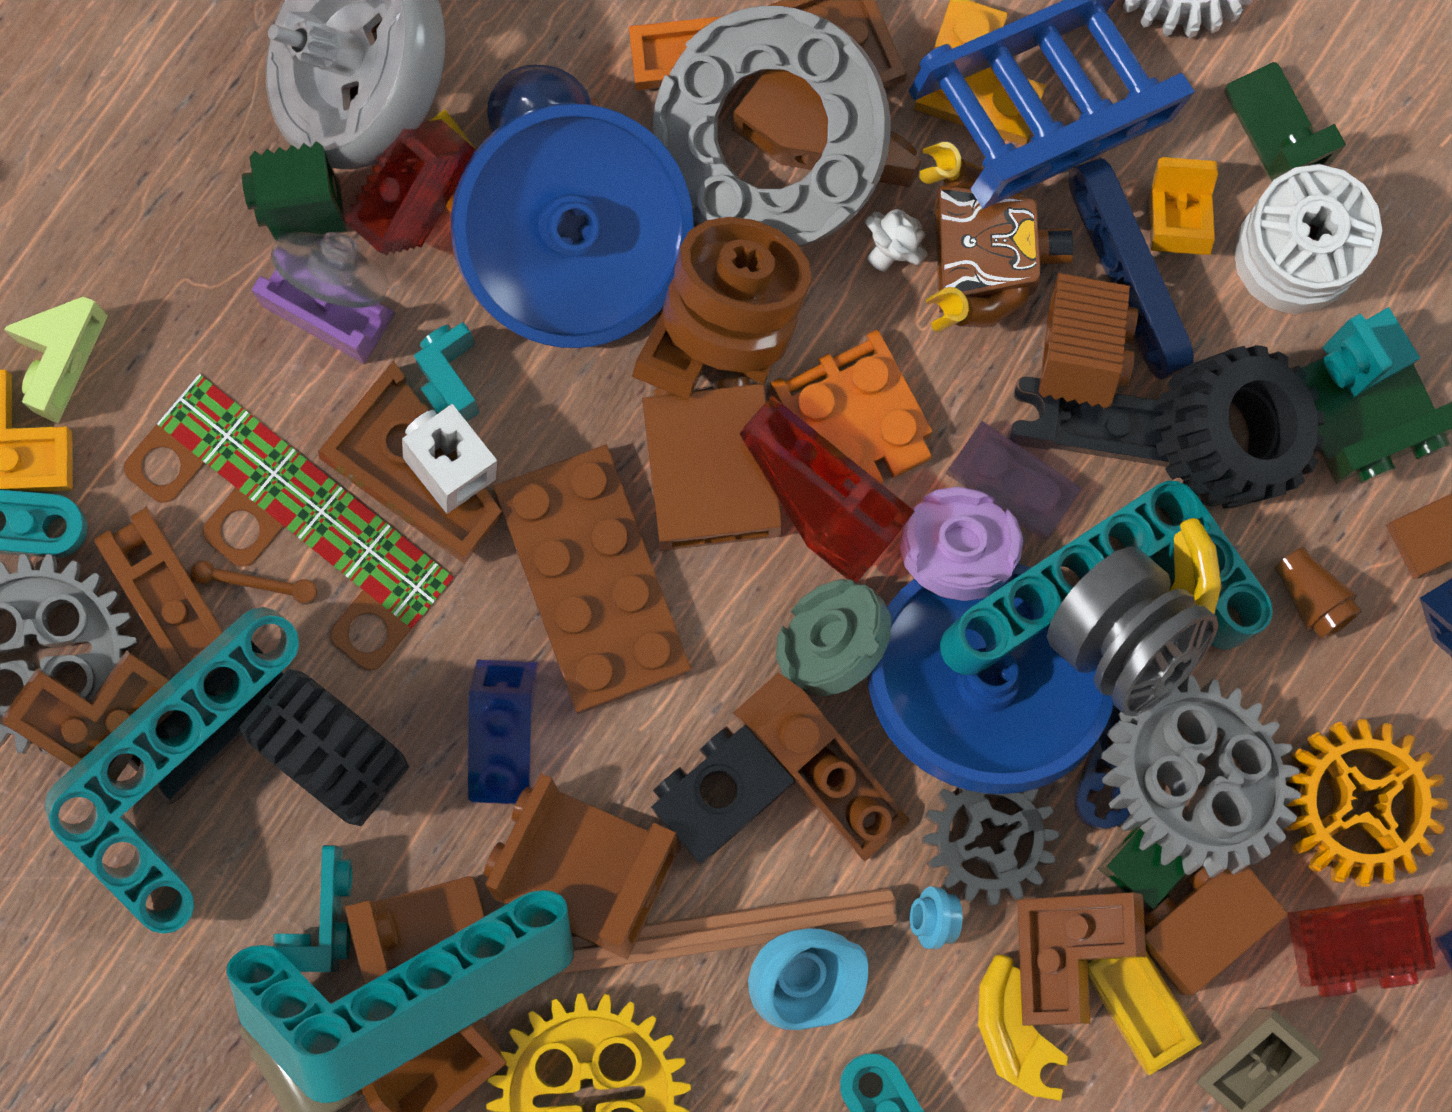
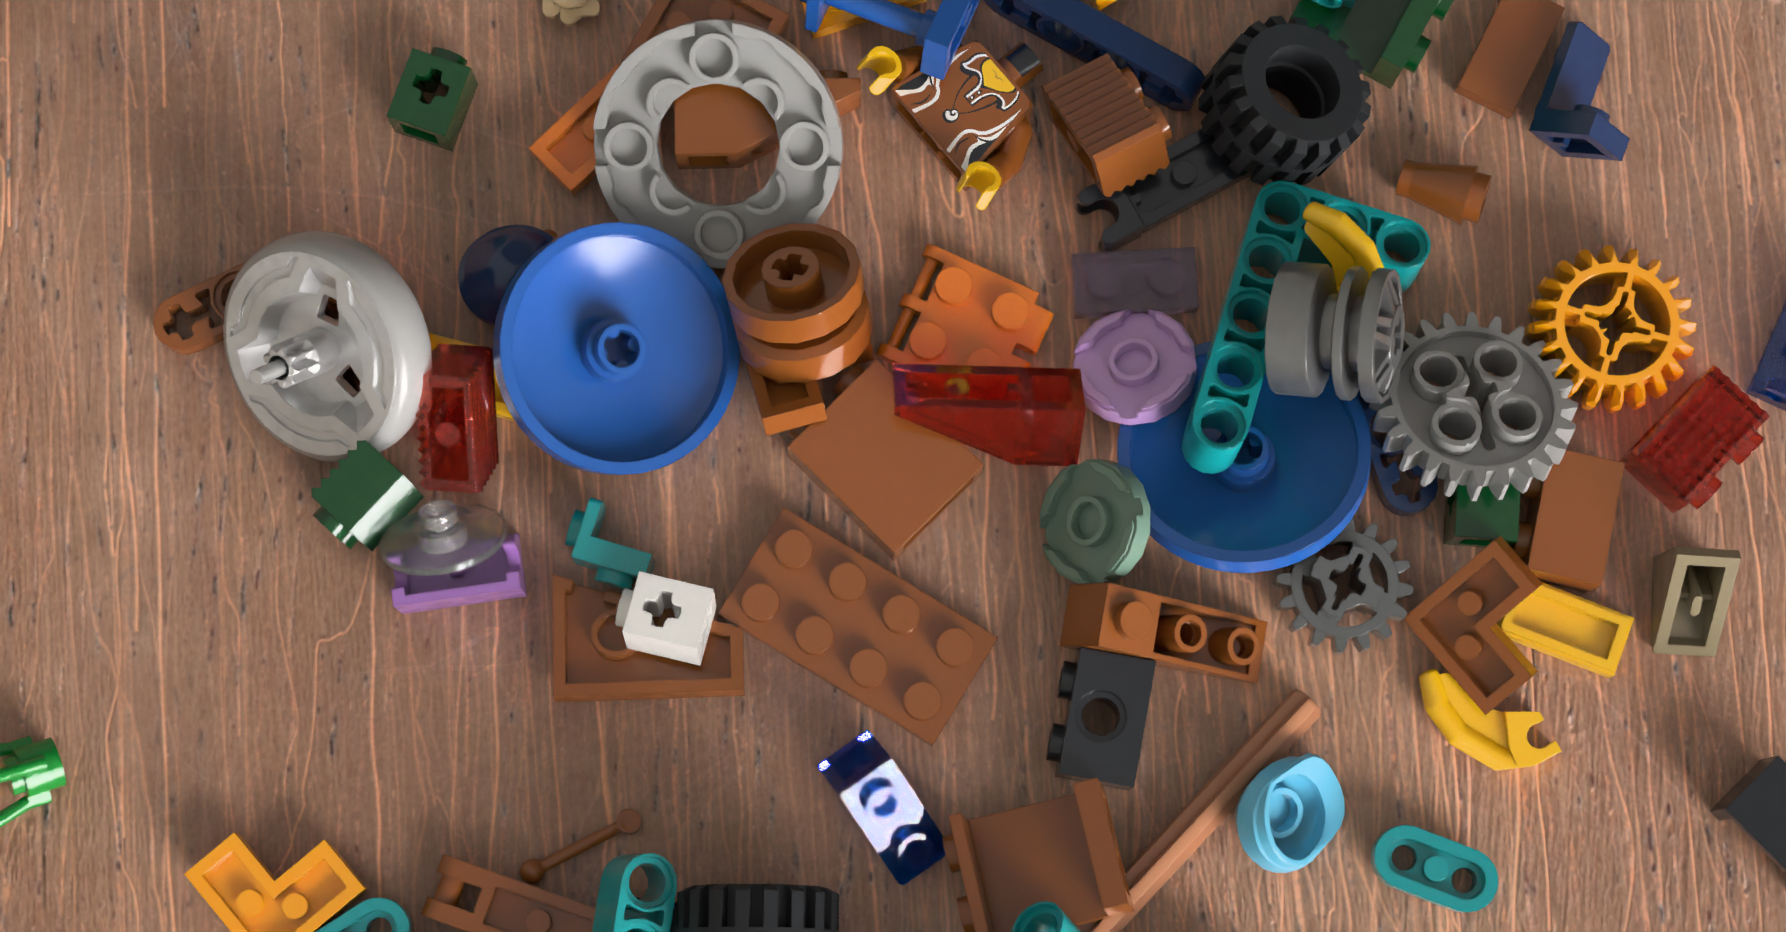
camera: 40 degrees left, 0 degrees up
(66, 339) = (264, 767): yellowish green slope -> none
(293, 493) = (550, 748): piece -> none
(896, 238) = (886, 157): white plant -> none
(936, 918) = (1351, 683): medium azure plate -> none

